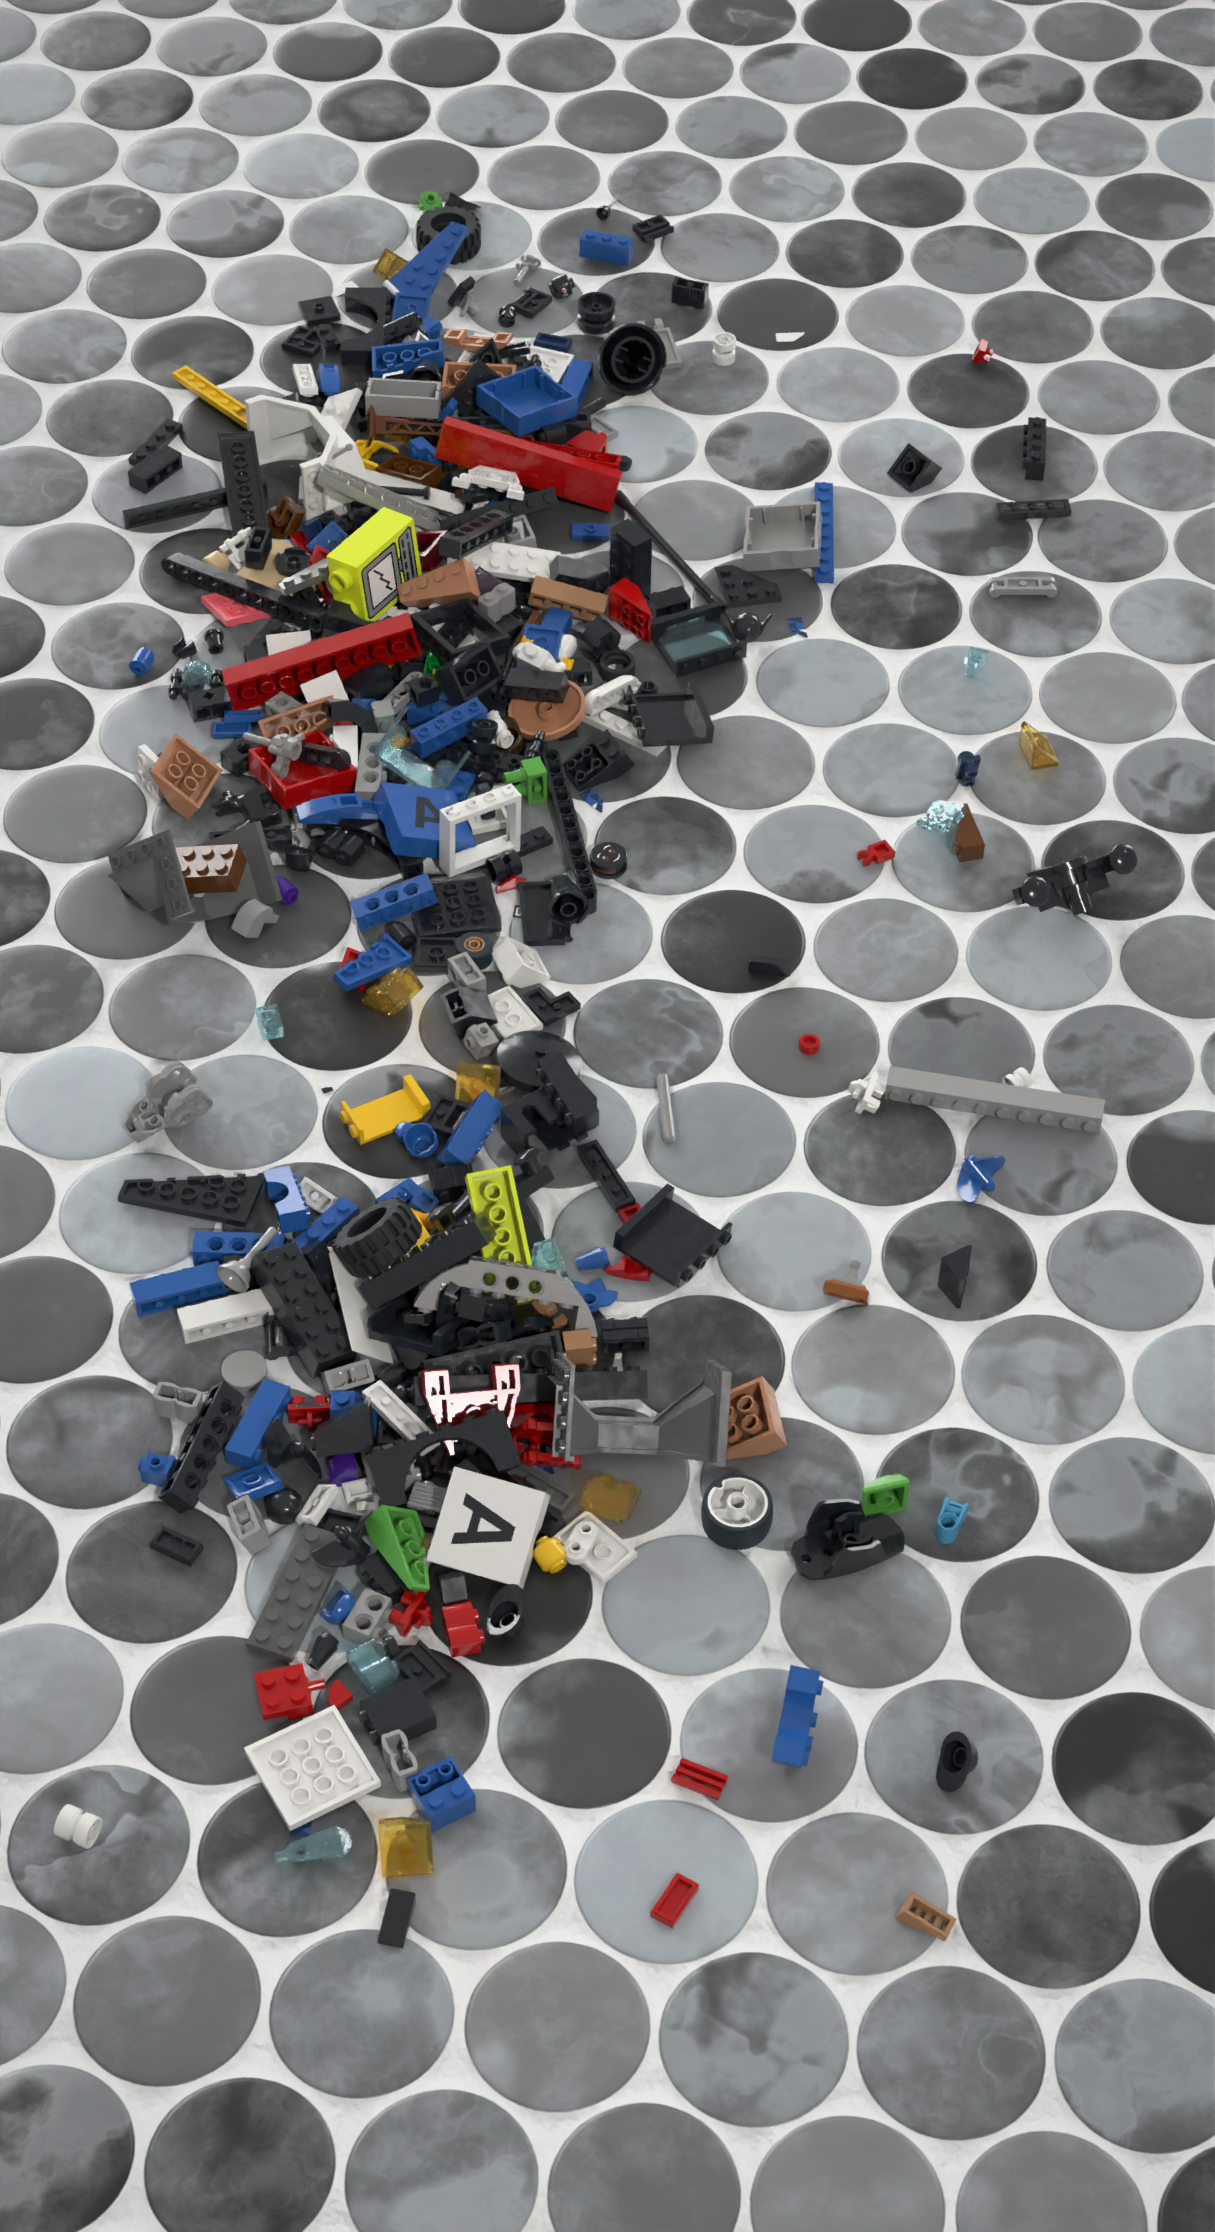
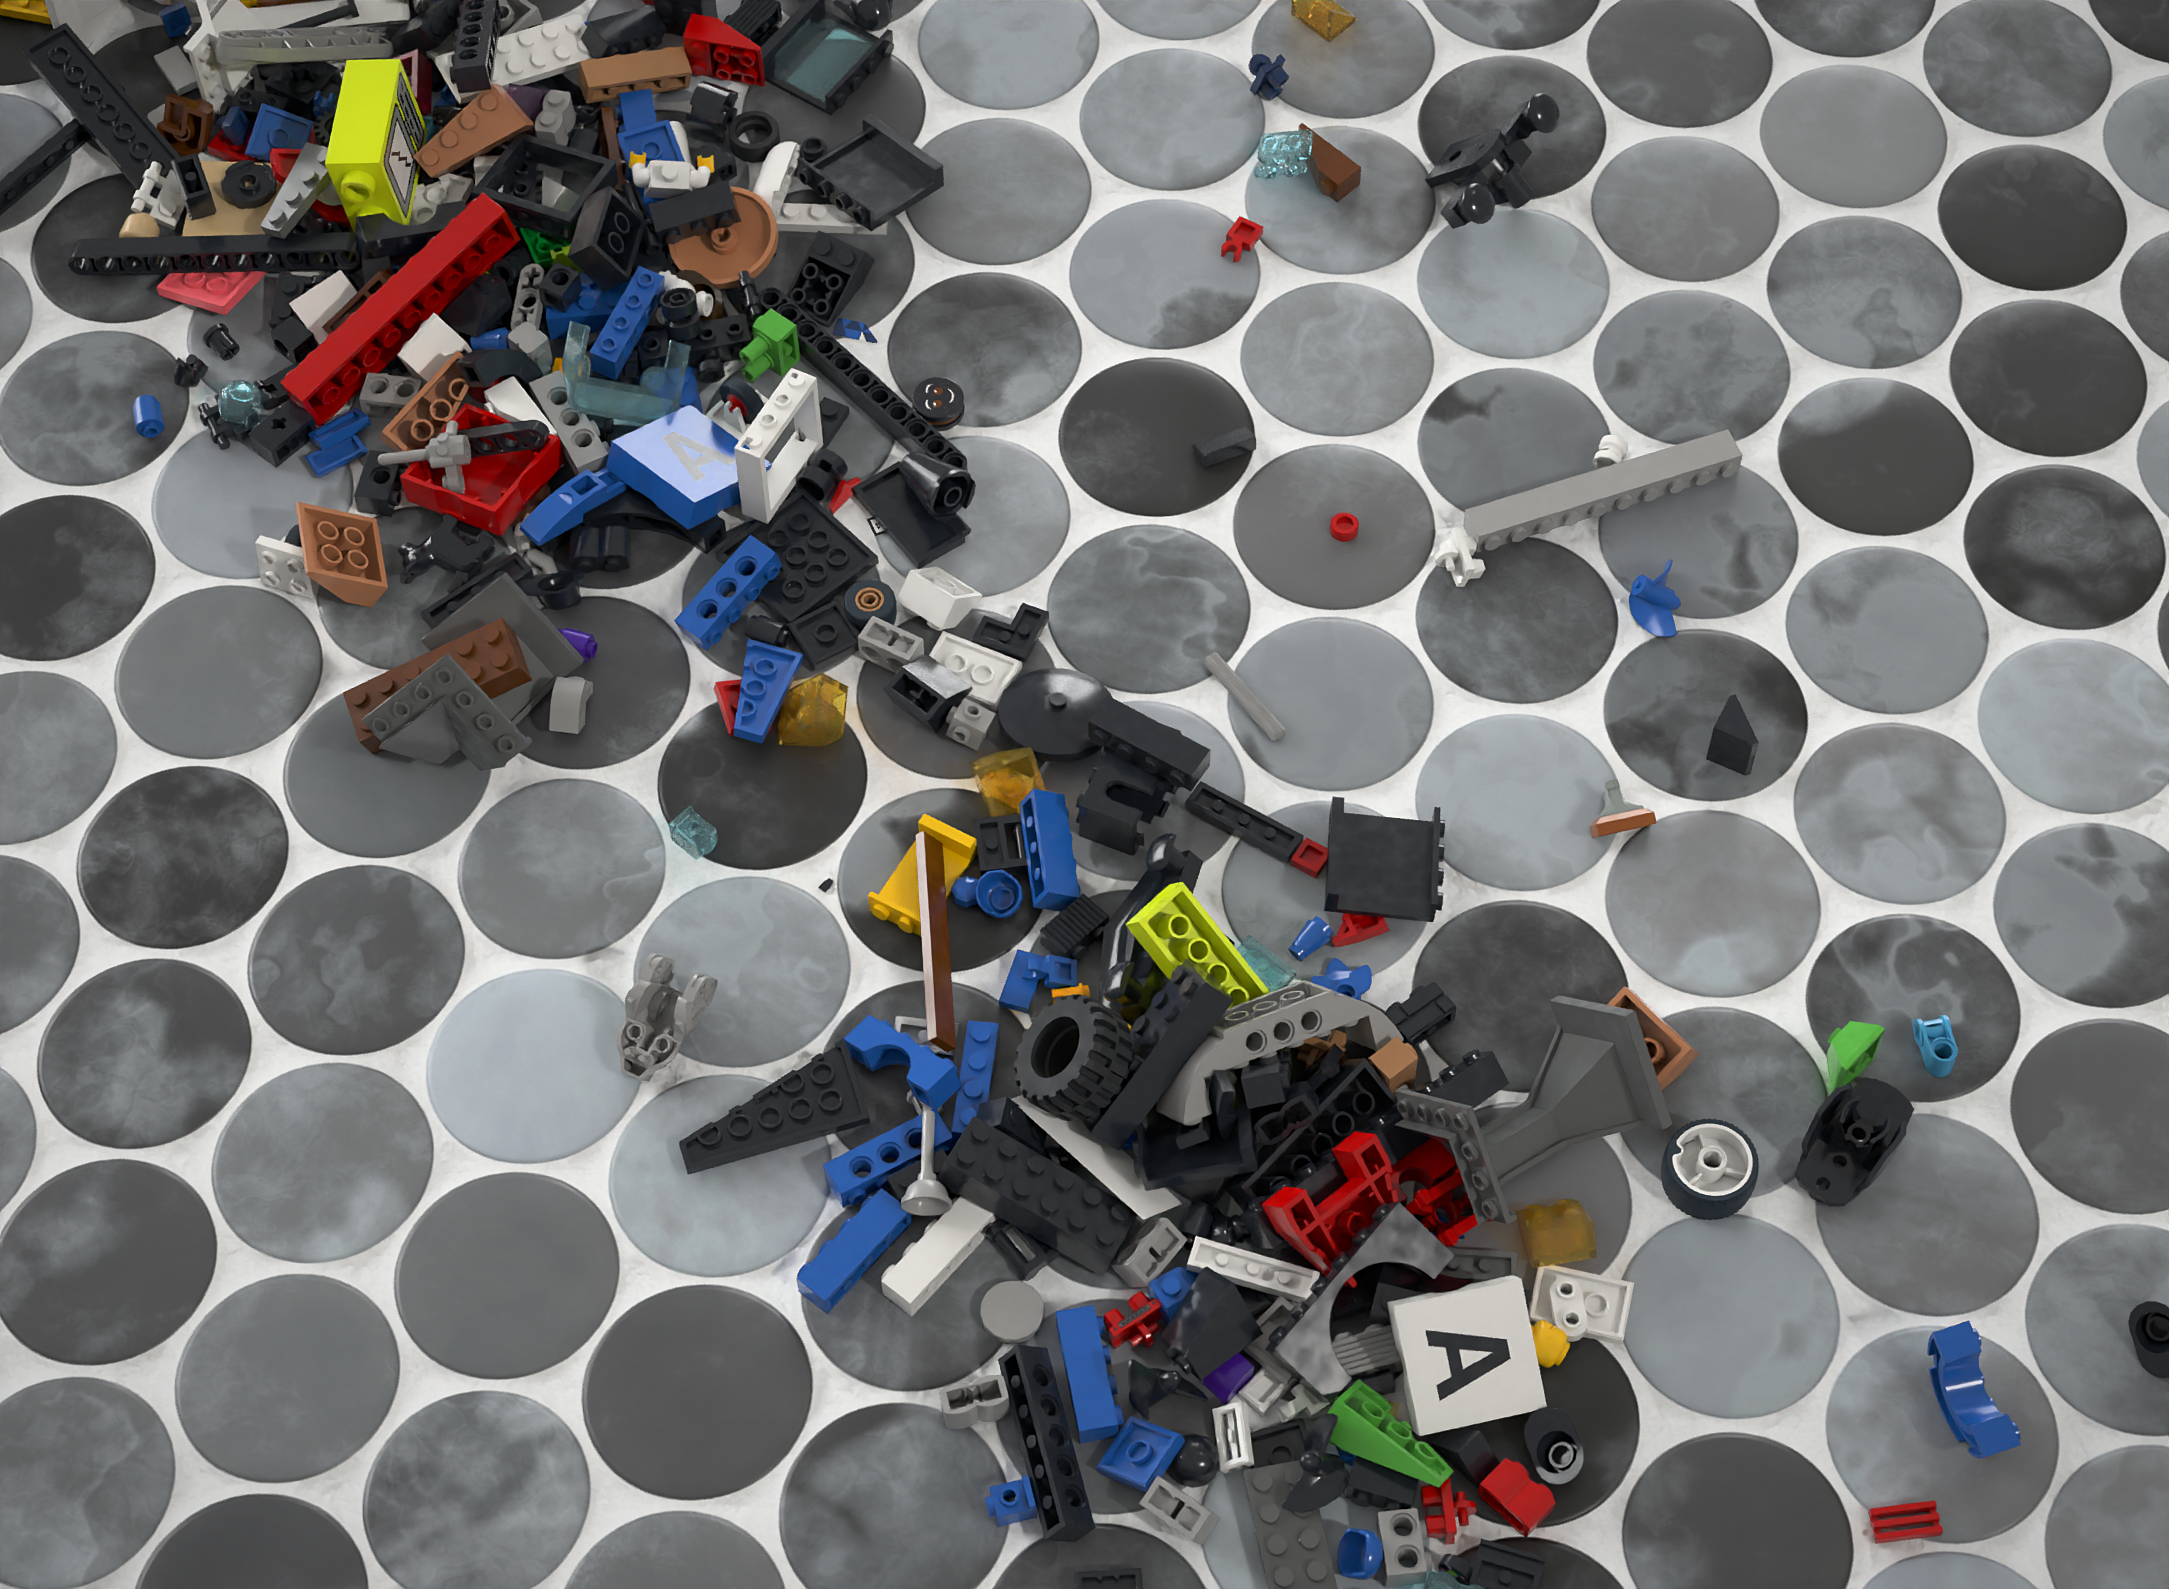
camera: 30 degrees left, 10 degrees up
(359, 1146) = (935, 942): none -> reddish brown tile

